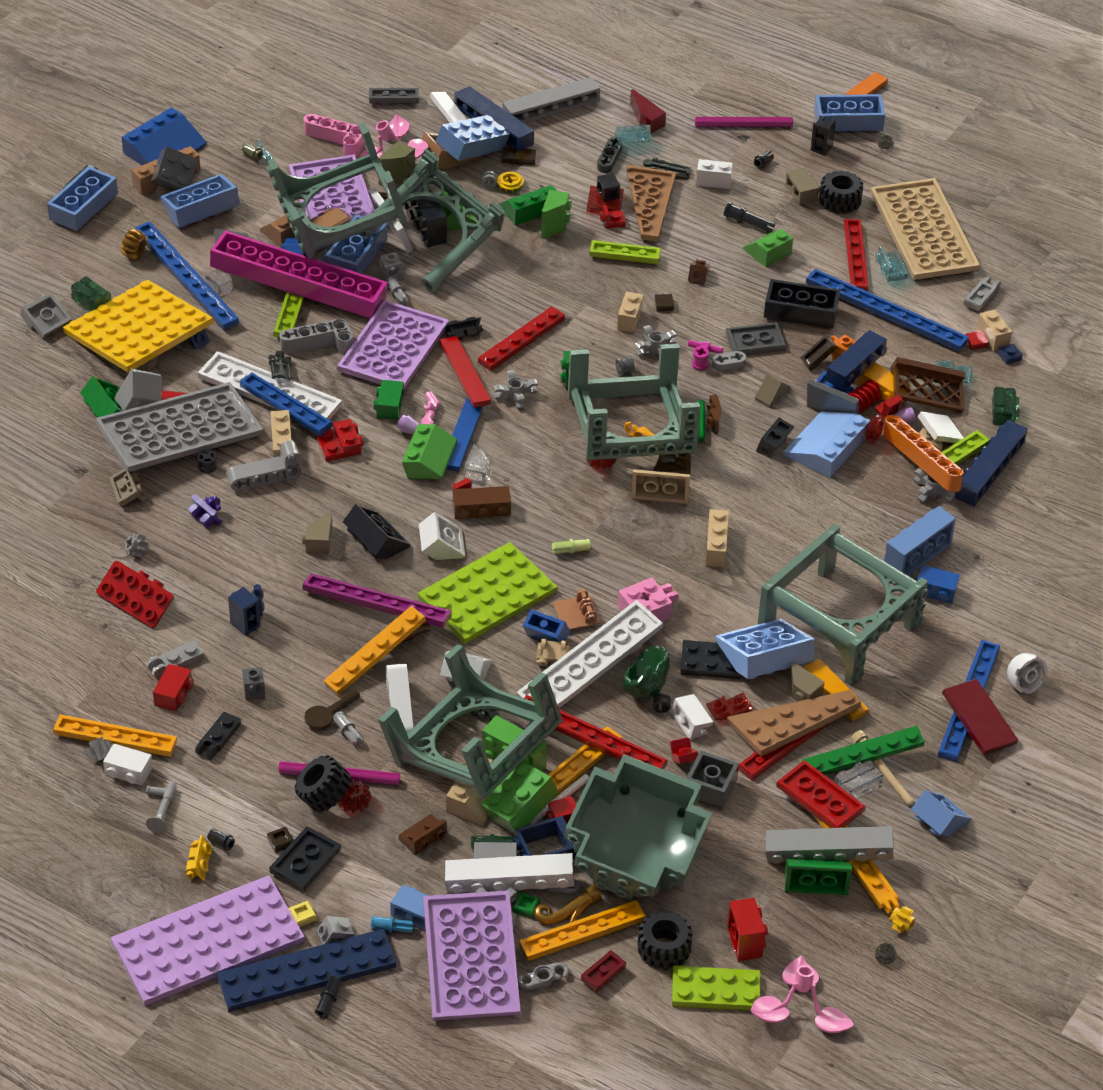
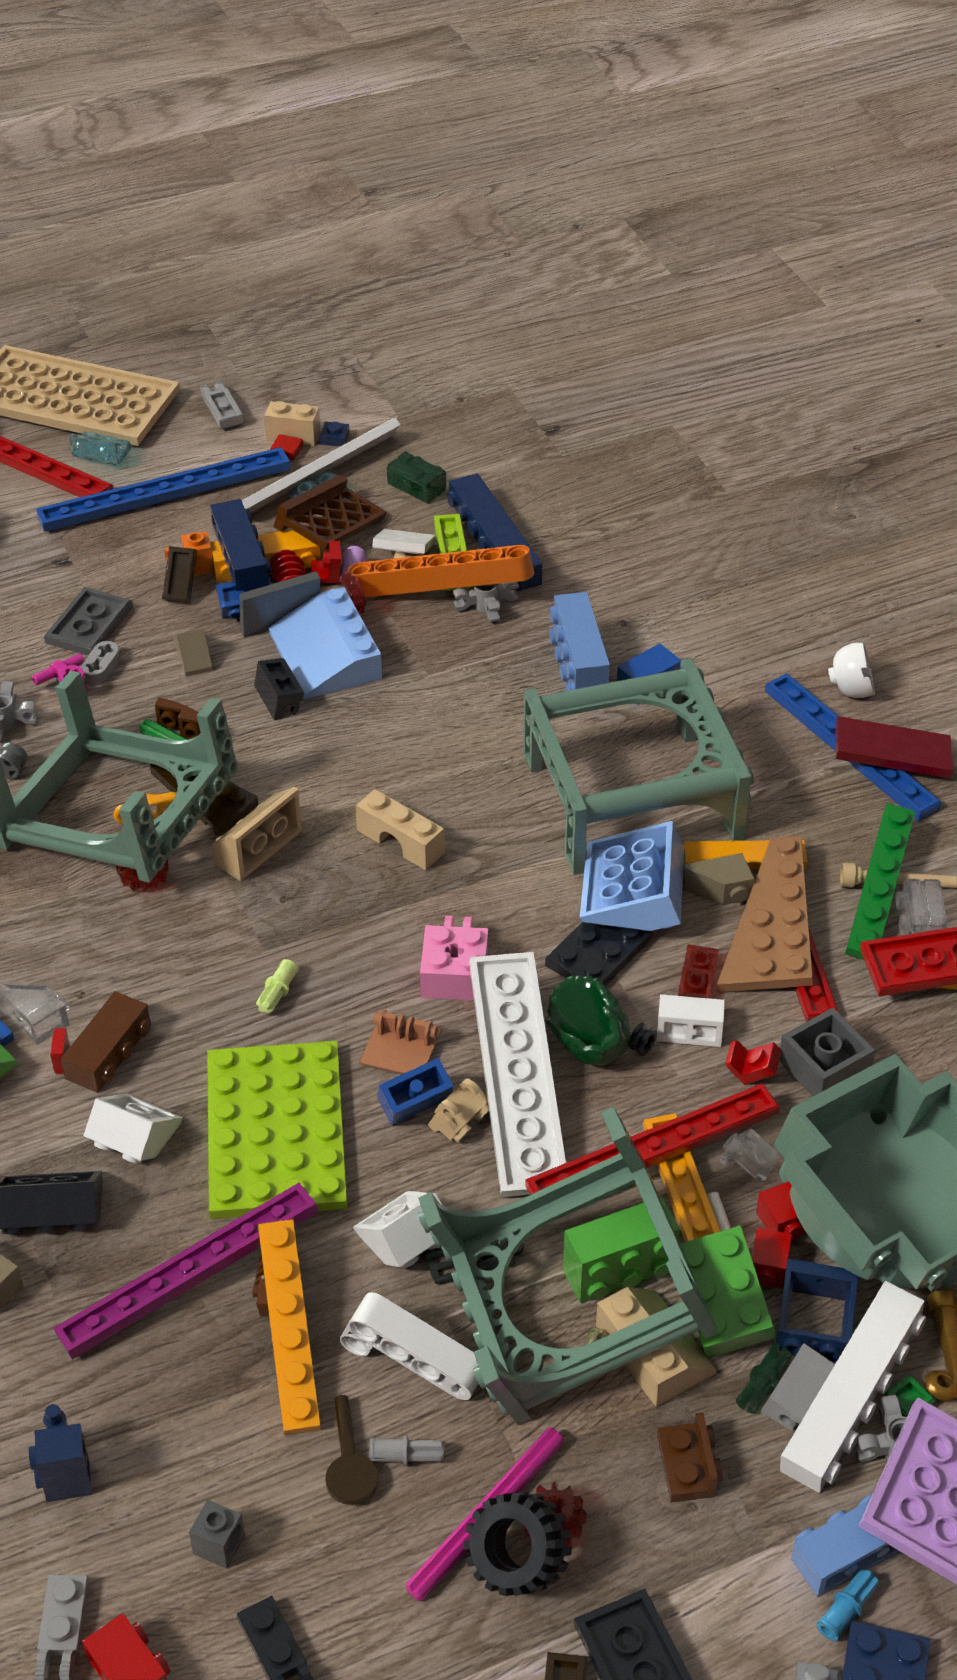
camera: 55 degrees left, 0 degrees up
(802, 303) = (83, 547): black brick -> none
(965, 360) = (320, 465): none -> white tile

